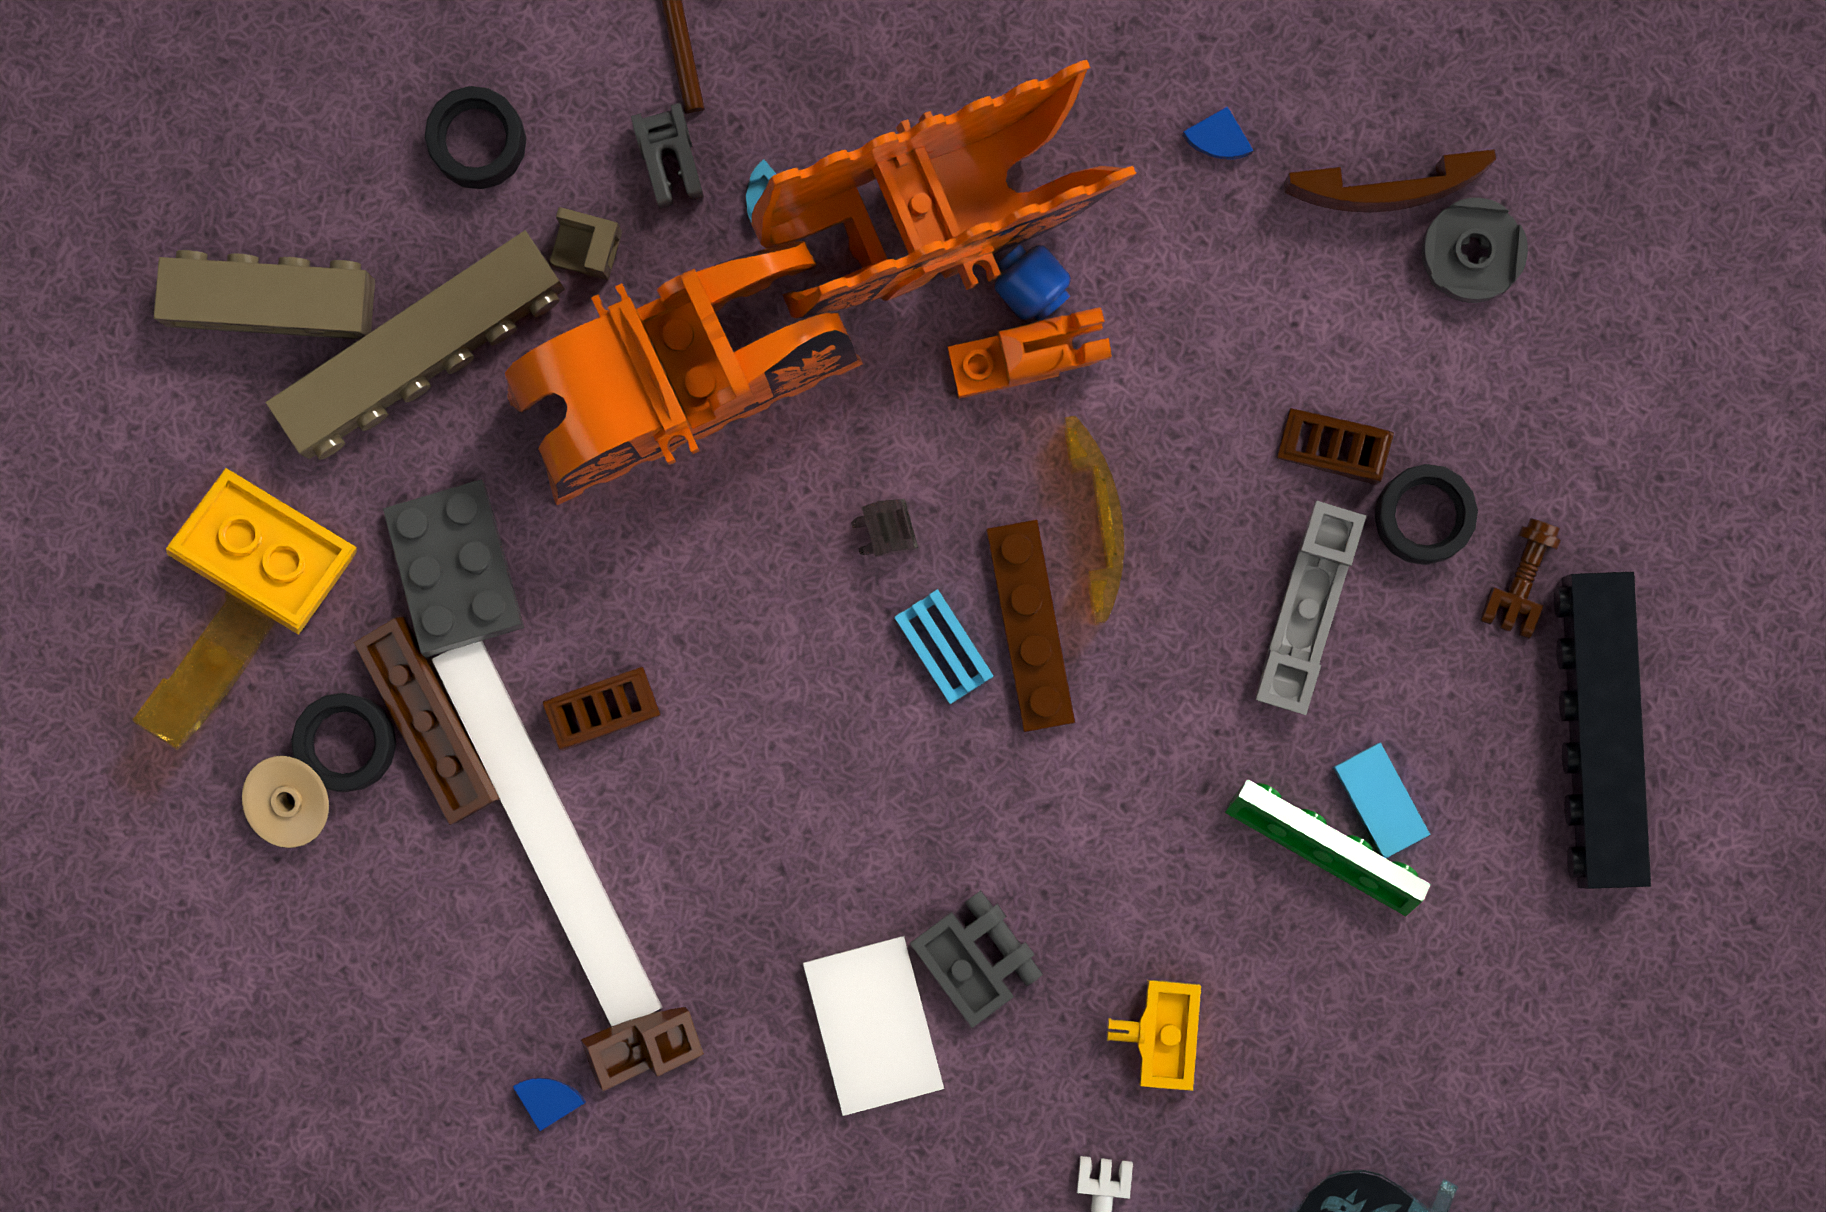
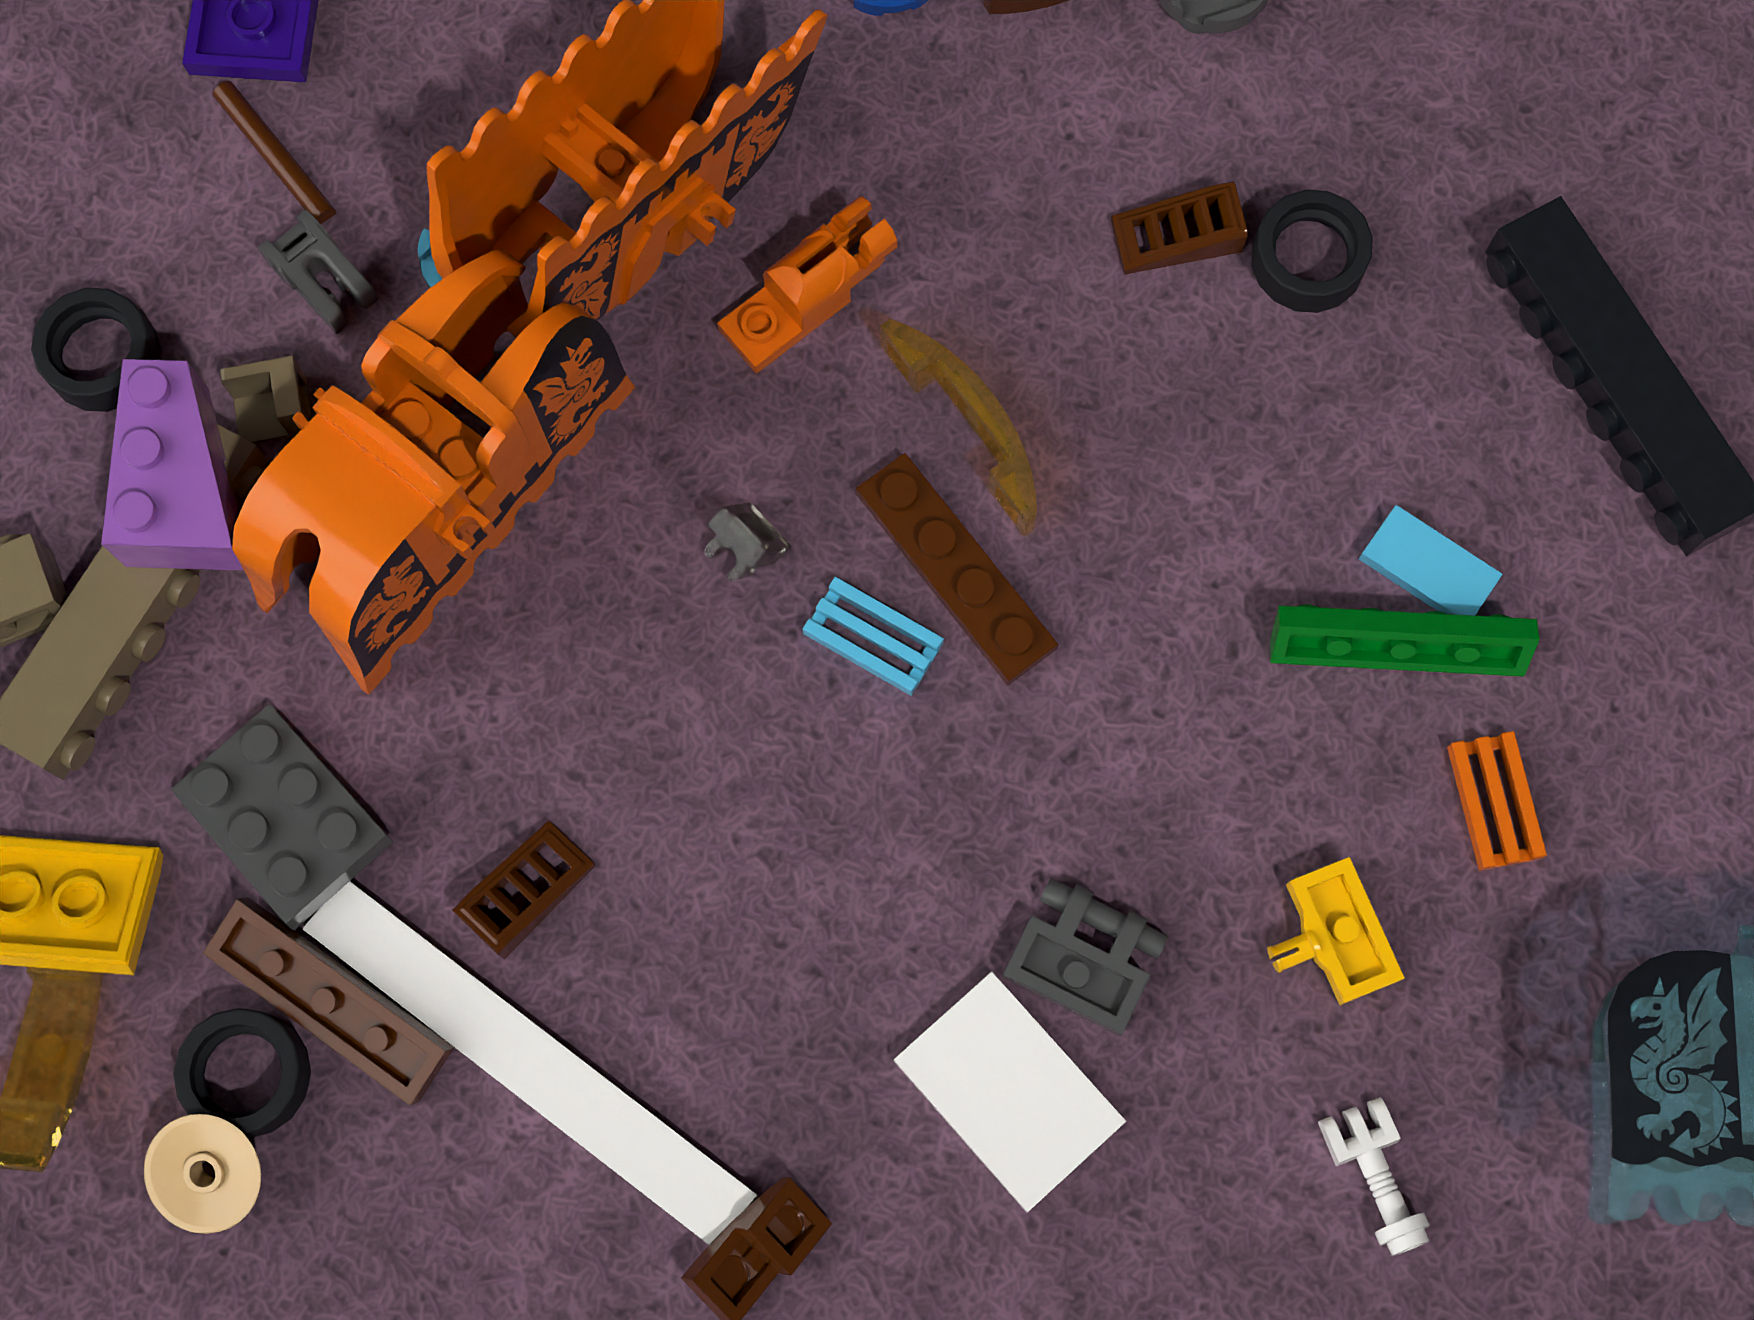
camera: 30 degrees left, 10 degrees down
(486, 279) = (168, 473): none -> medium lavender wedge
(1032, 282) = (773, 213): blue head -> none
(1309, 607) = (1241, 400): light grey slope -> none
(1344, 954) = (1521, 796): none -> orange tile
(1539, 537) = (1441, 217): reddish brown hinge -> none

